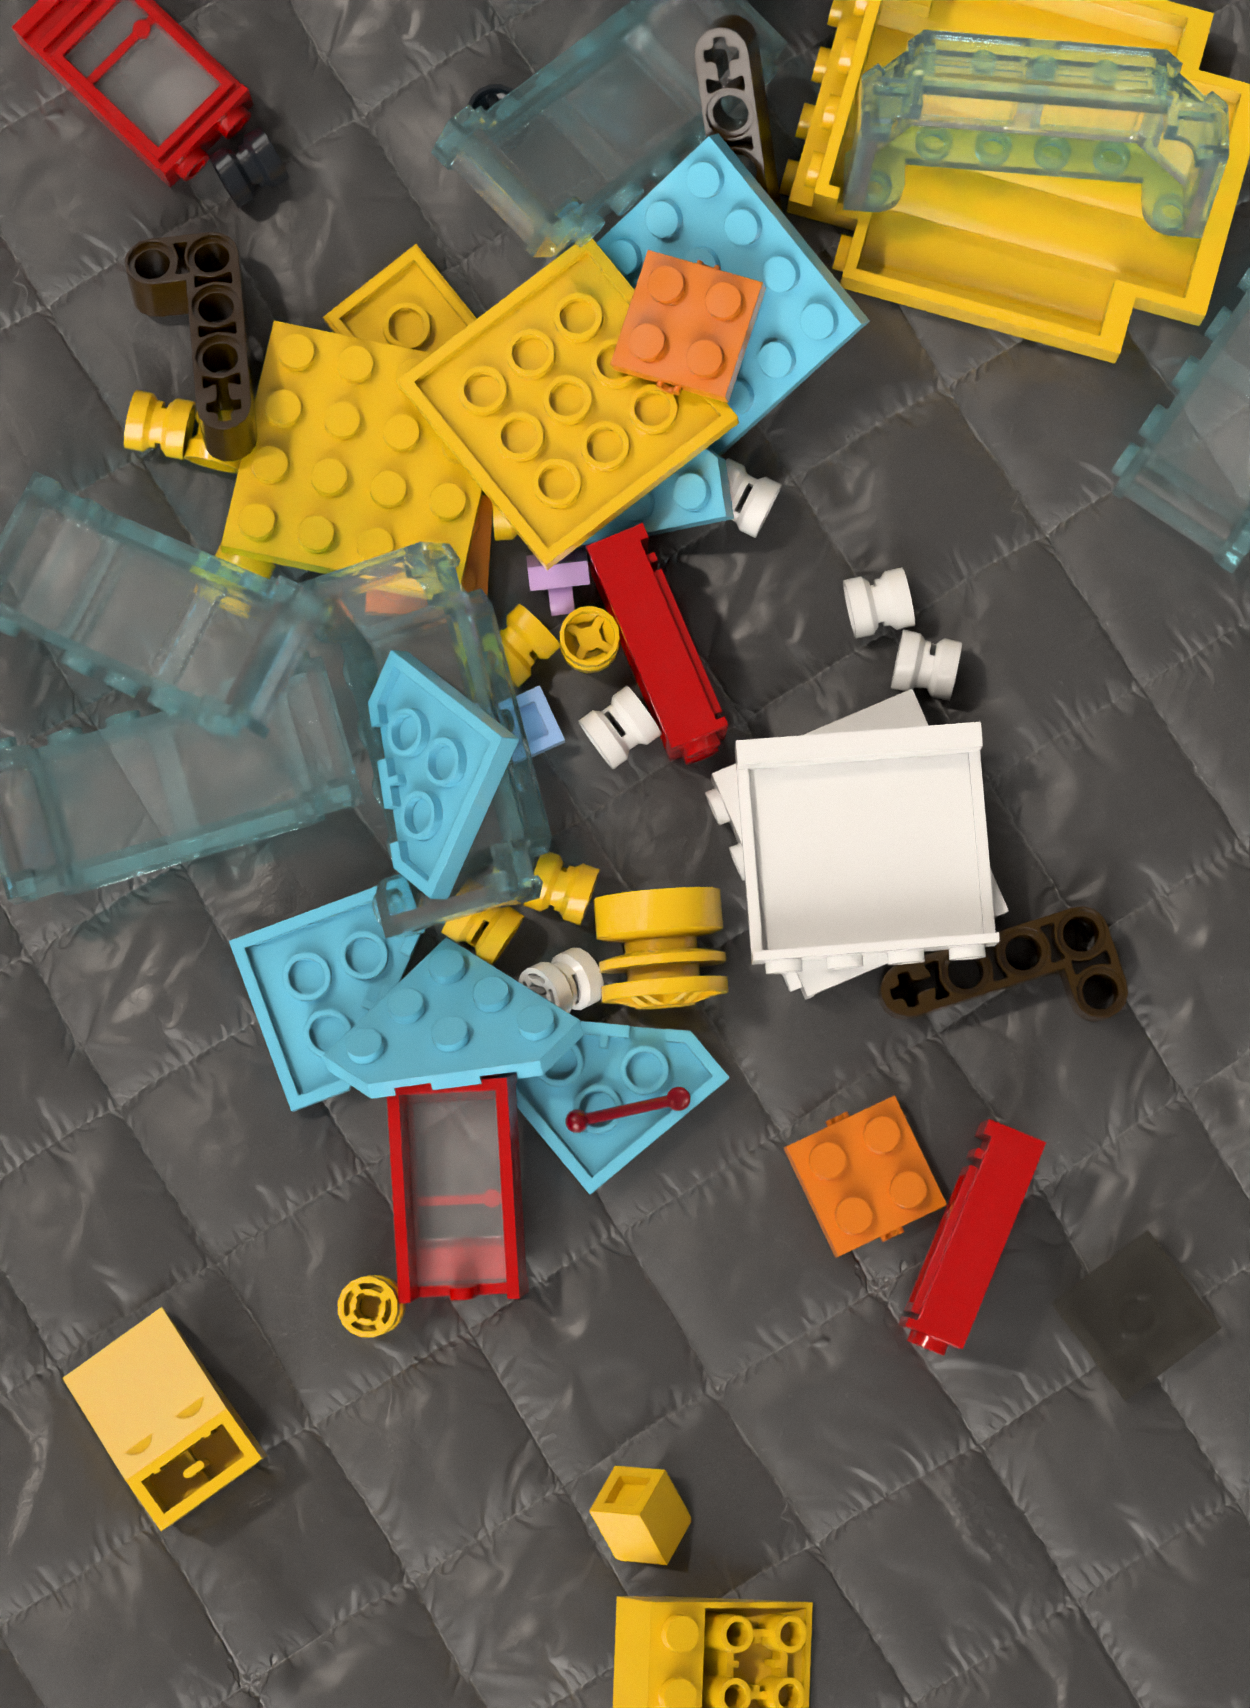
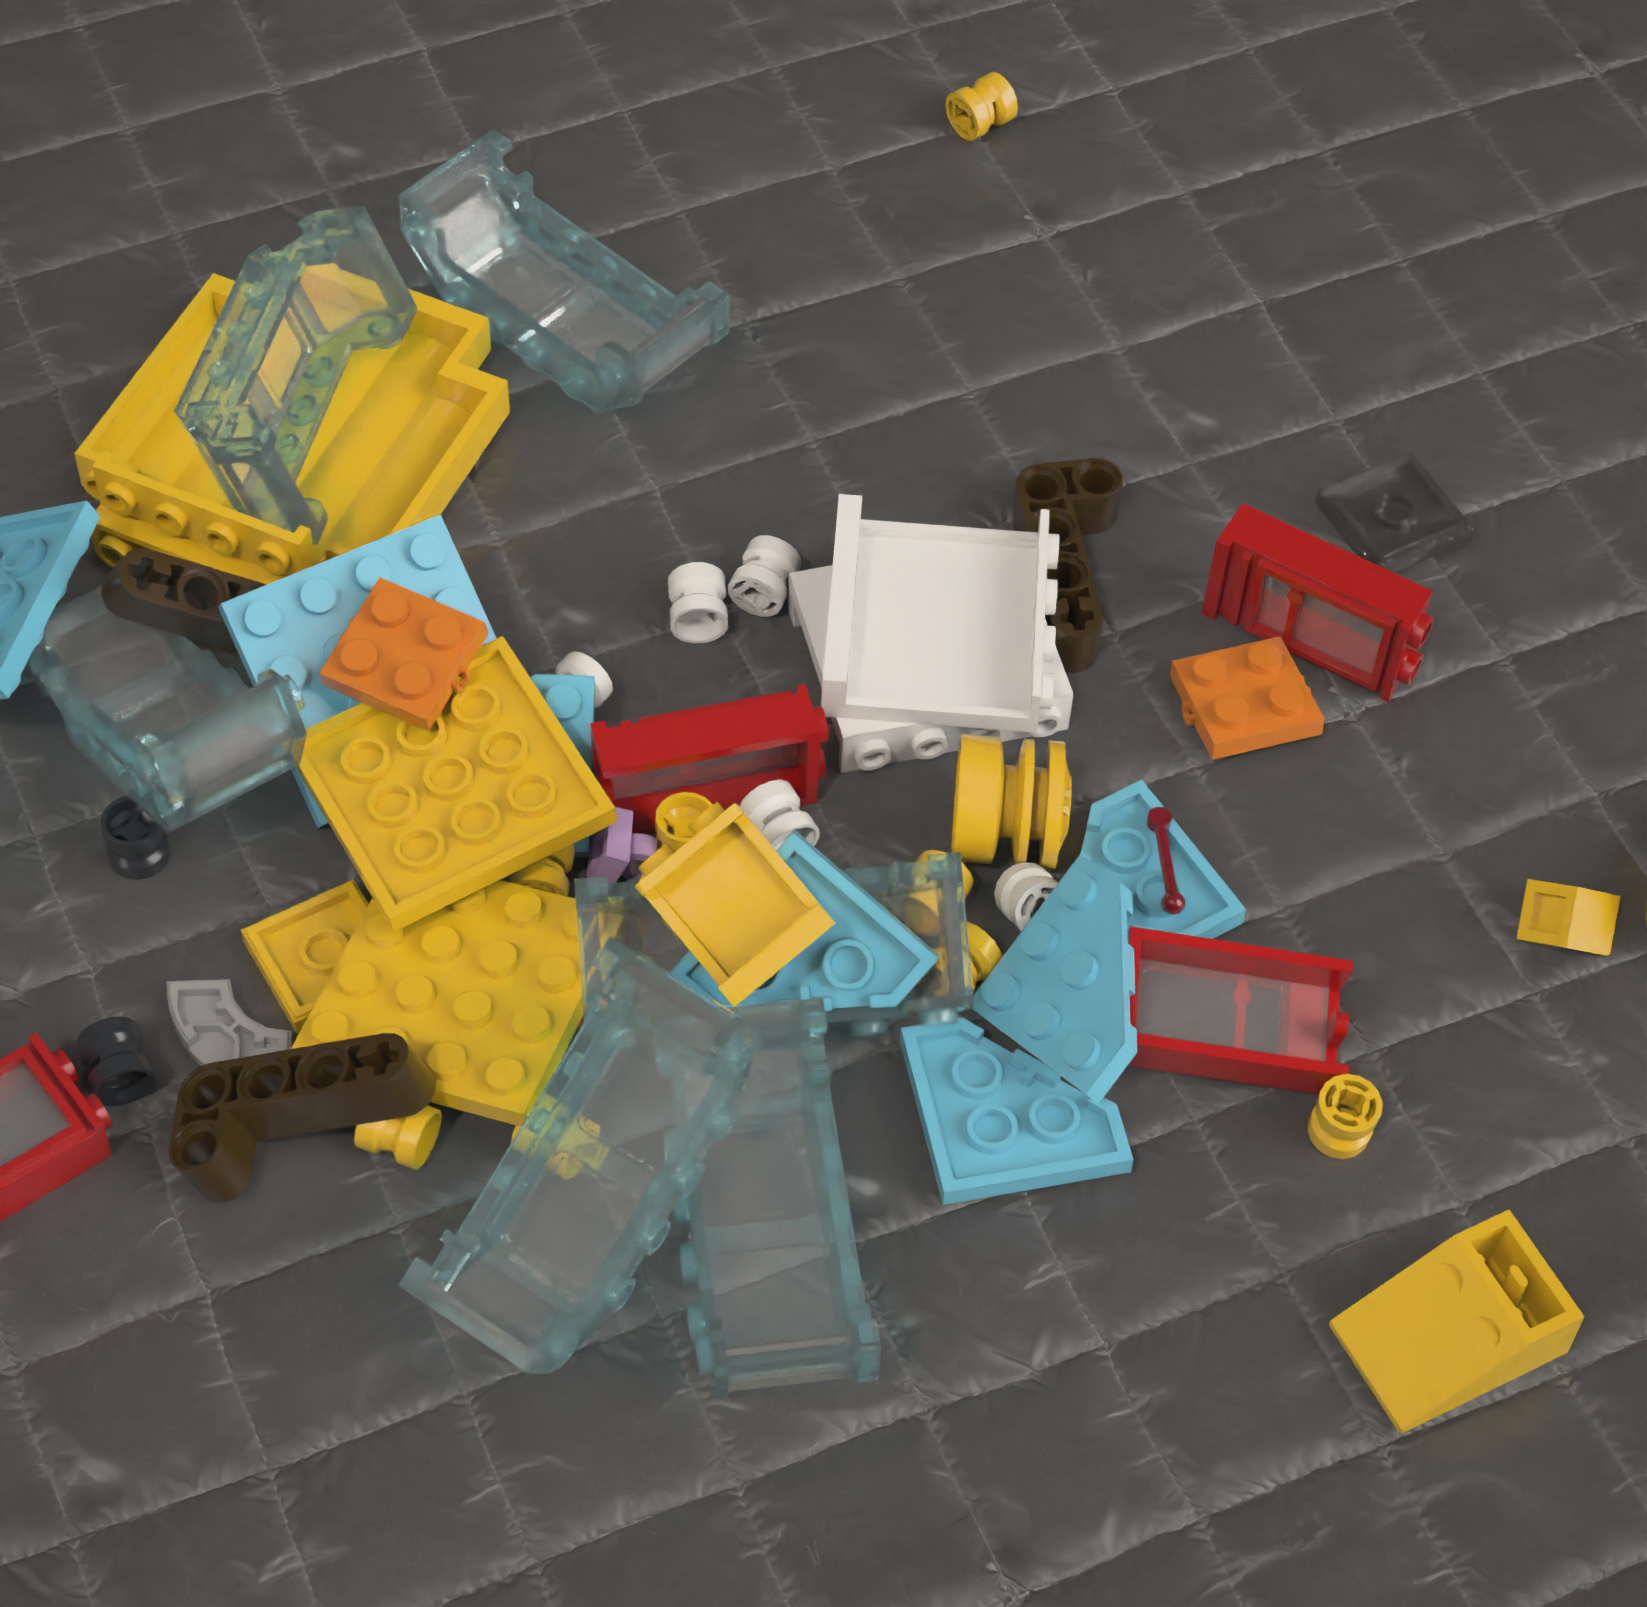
camera: 85 degrees left, 30 degrees down
(154, 424) = (370, 1186): yellow wheel -> none
(300, 259) = (214, 1024): none -> light grey tile
(428, 699) = (733, 901): none -> yellow panel

